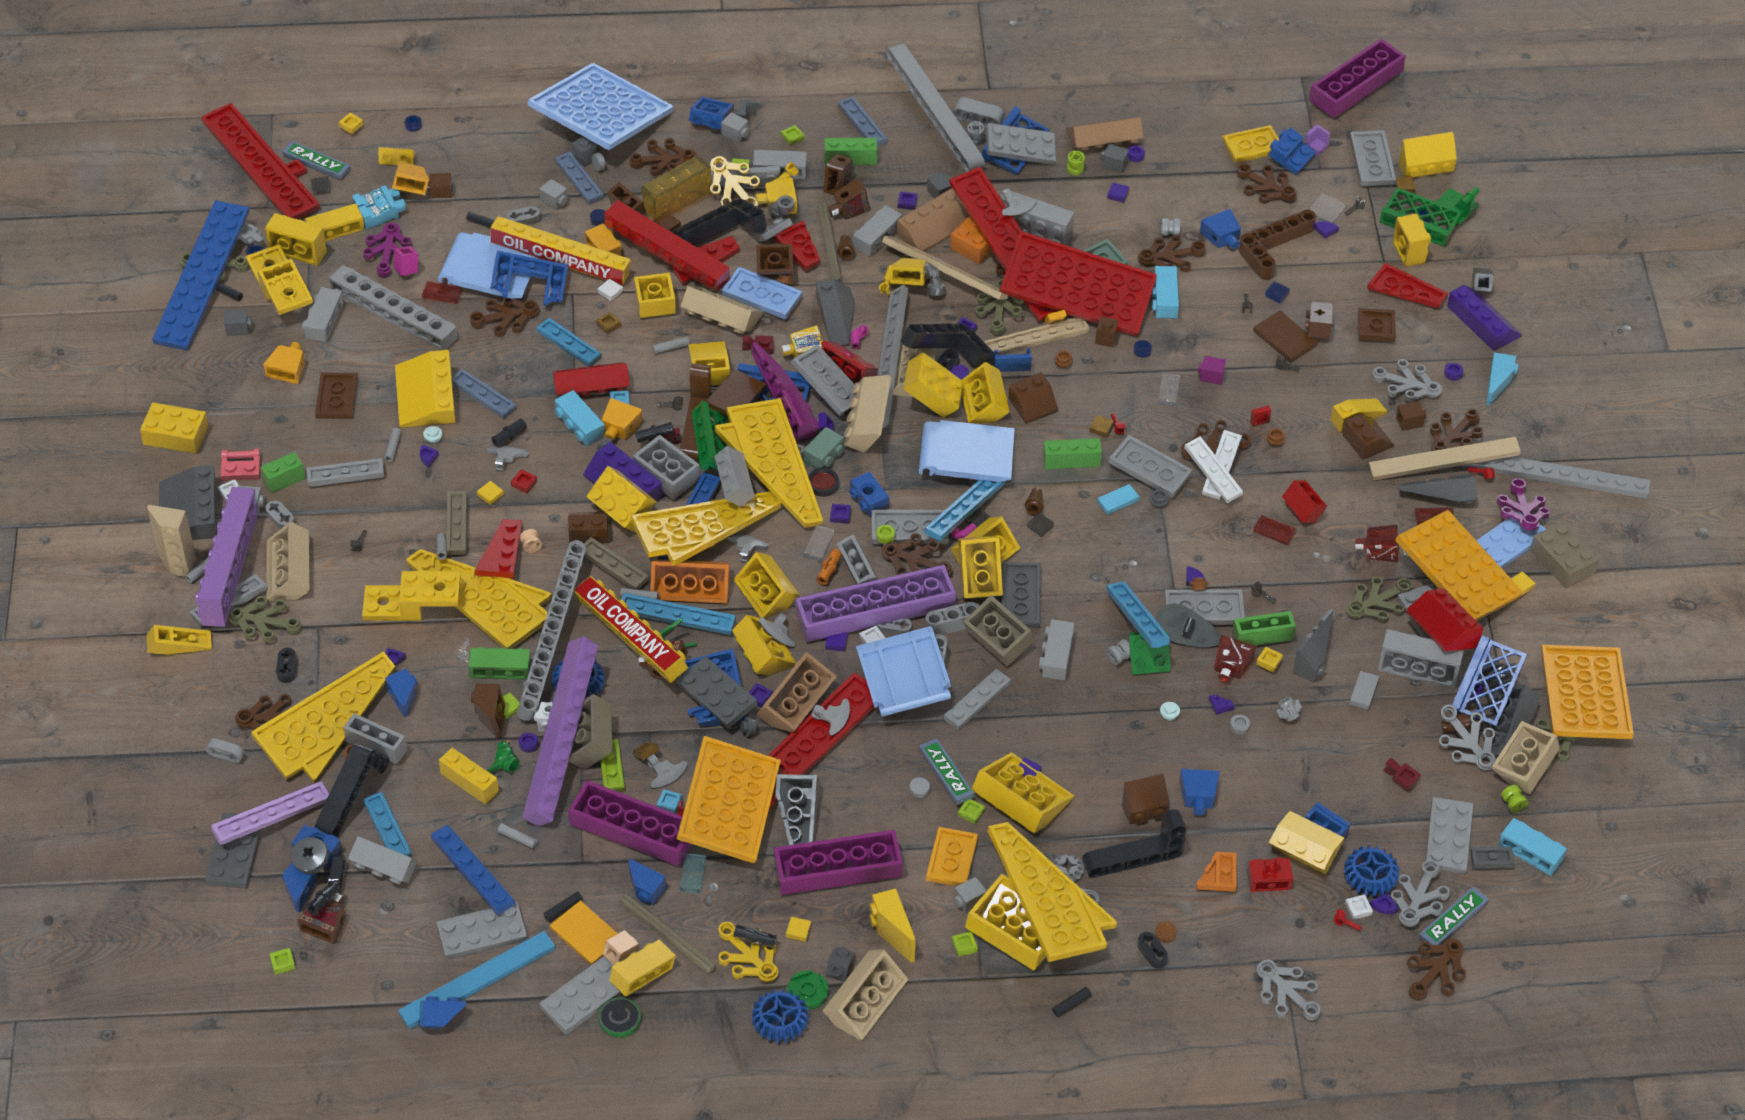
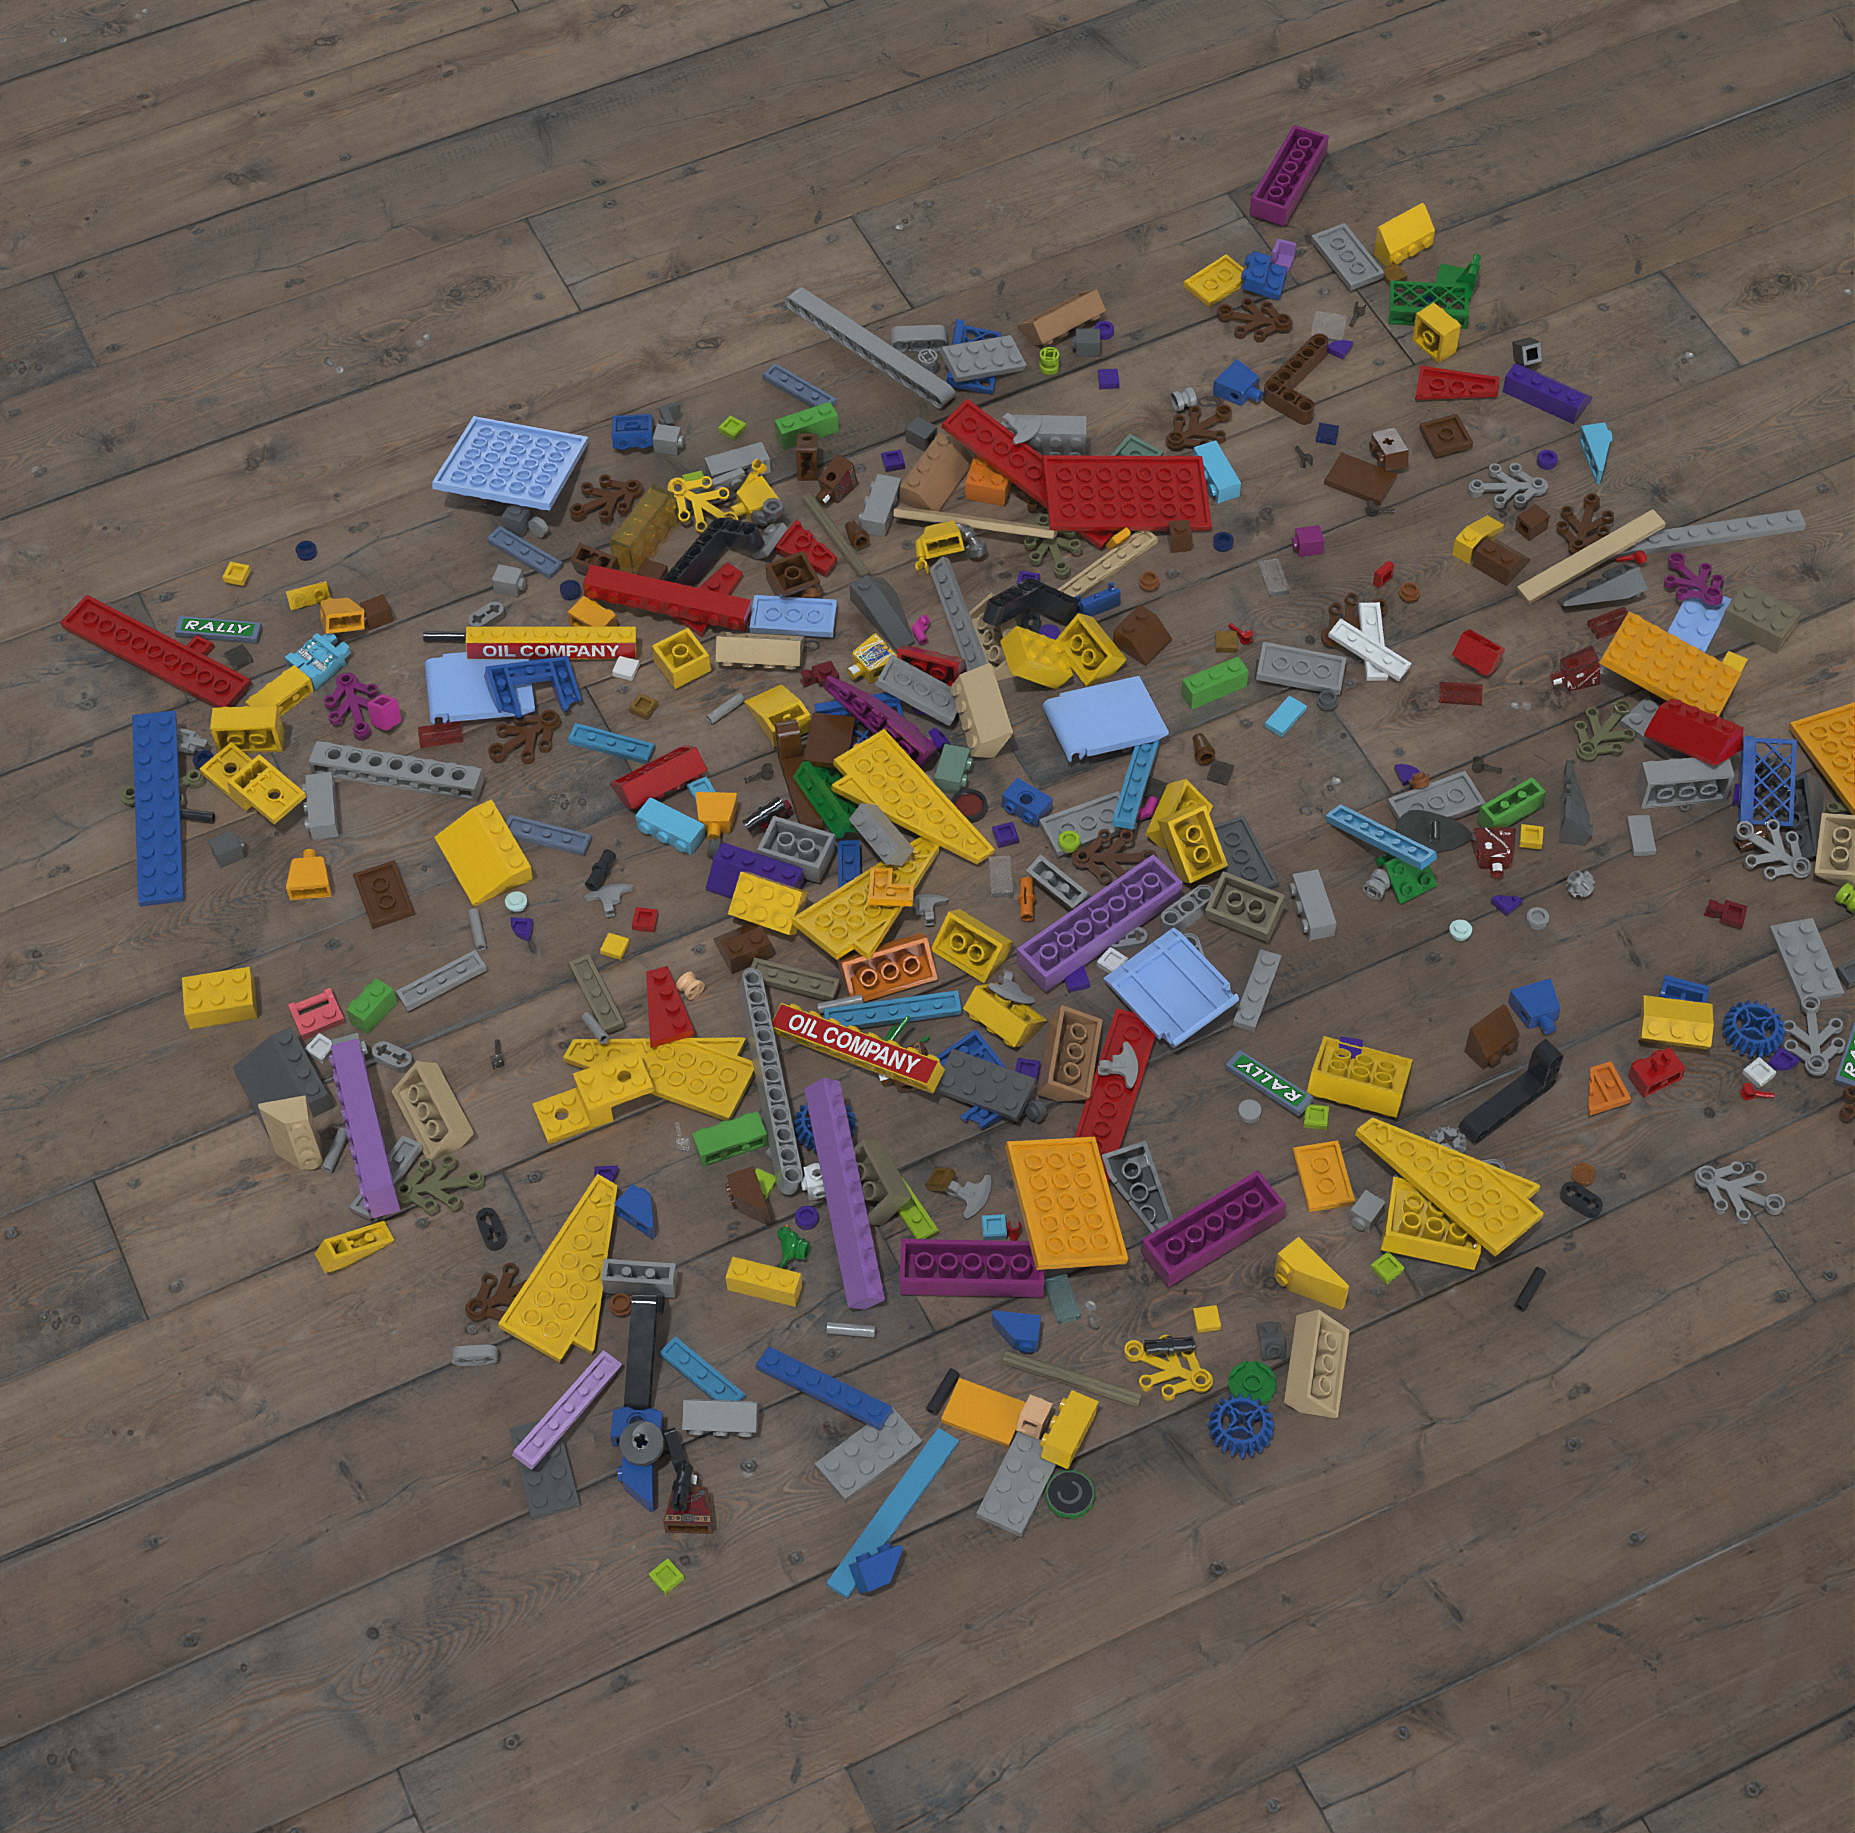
camera: 20 degrees left, 5 degrees up
(714, 518) = (885, 893): none -> light orange plate

